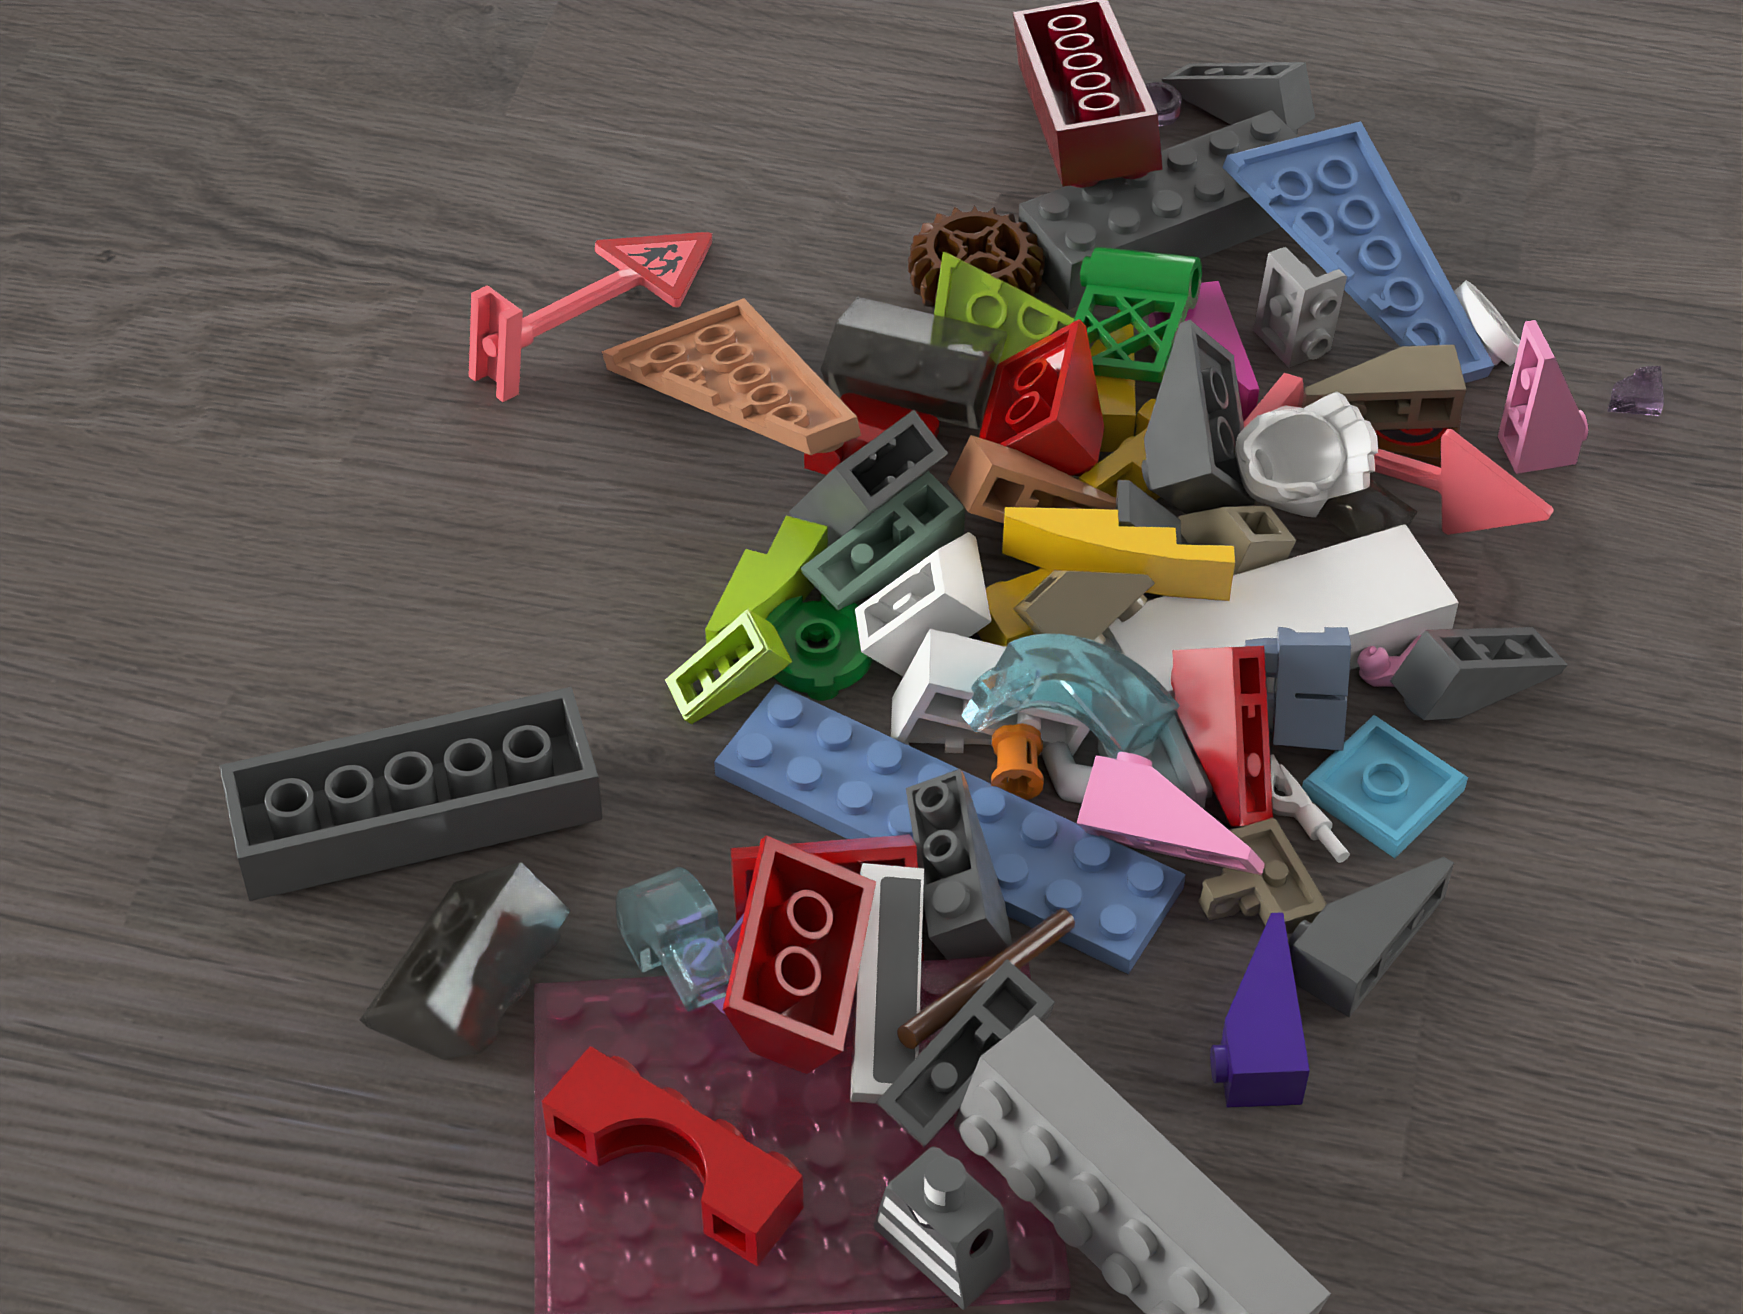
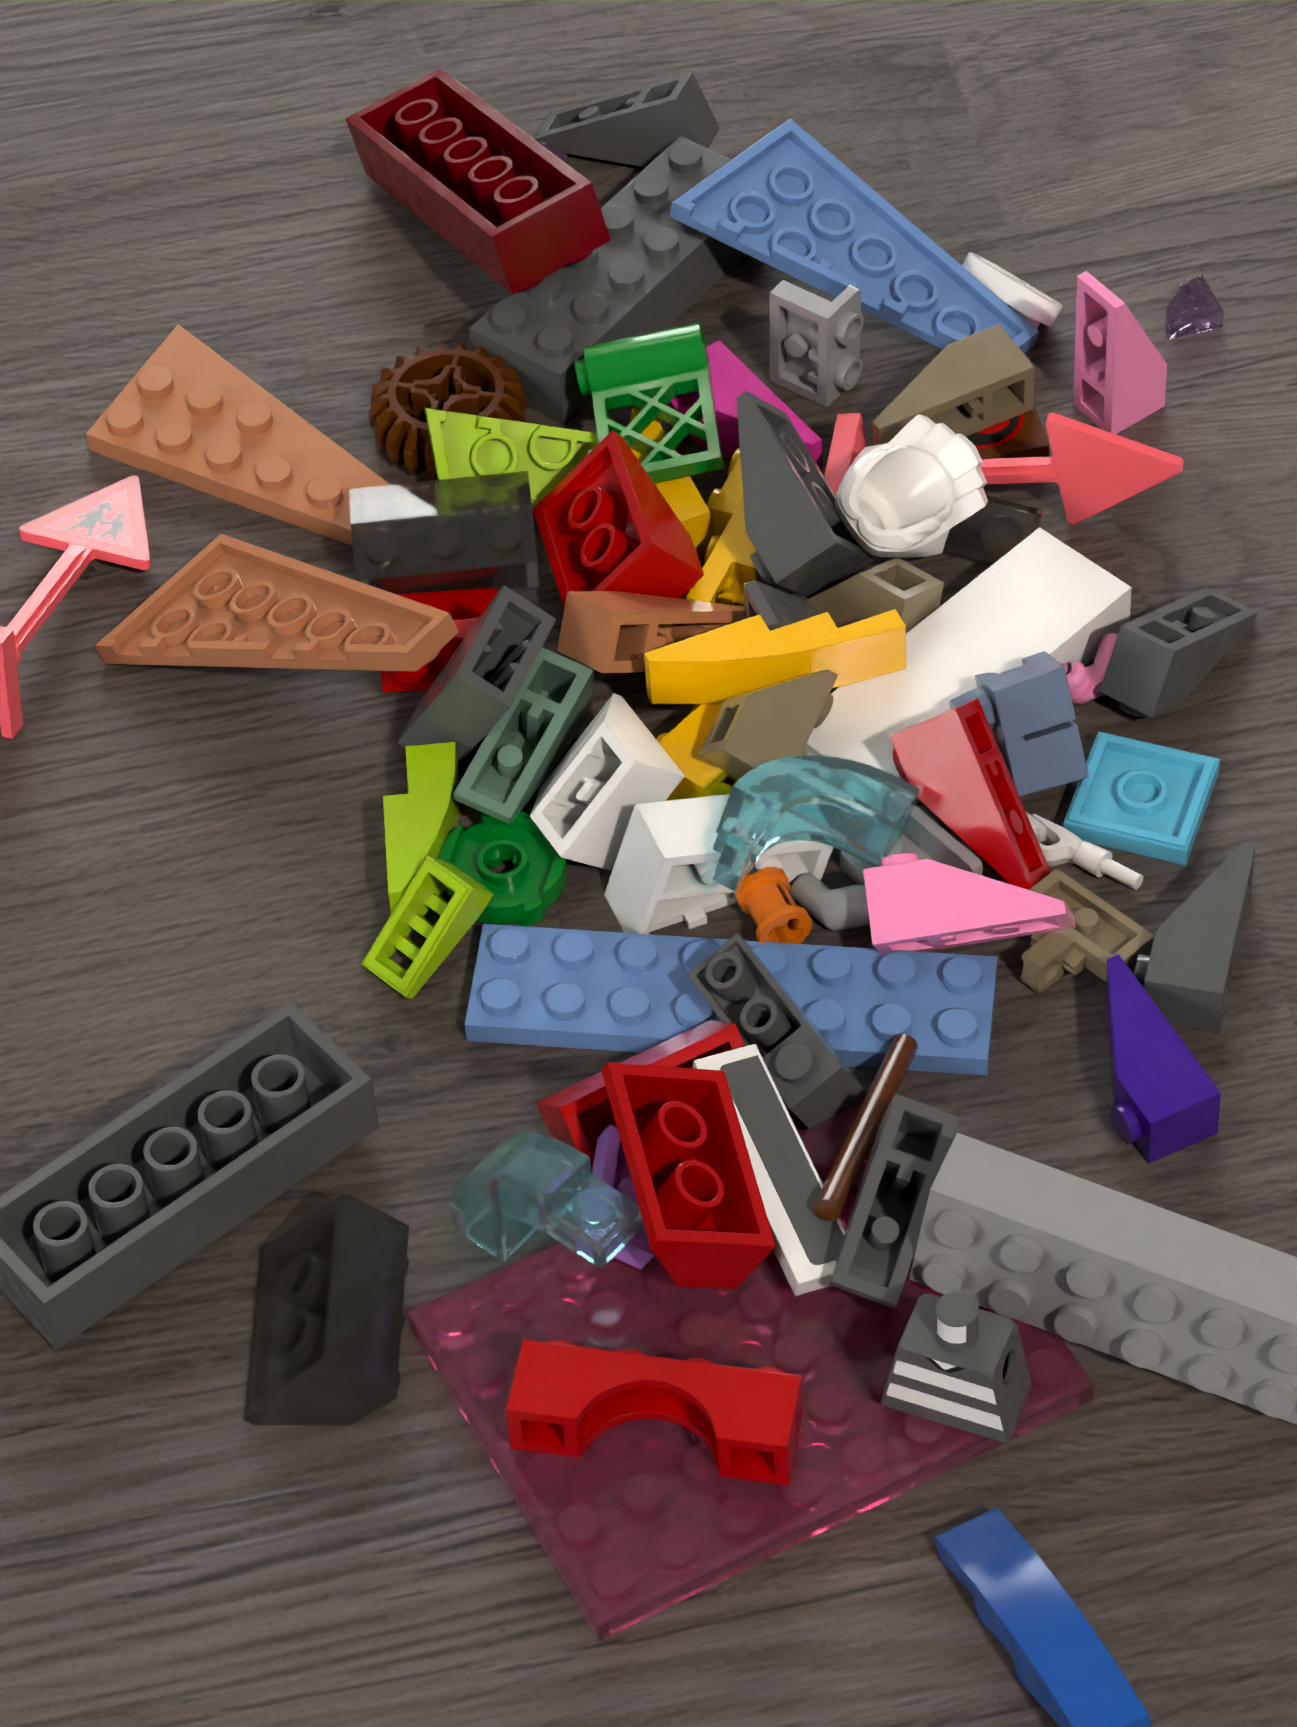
camera: 20 degrees left, 0 degrees up
(795, 226) = (227, 436): none -> nougat wing

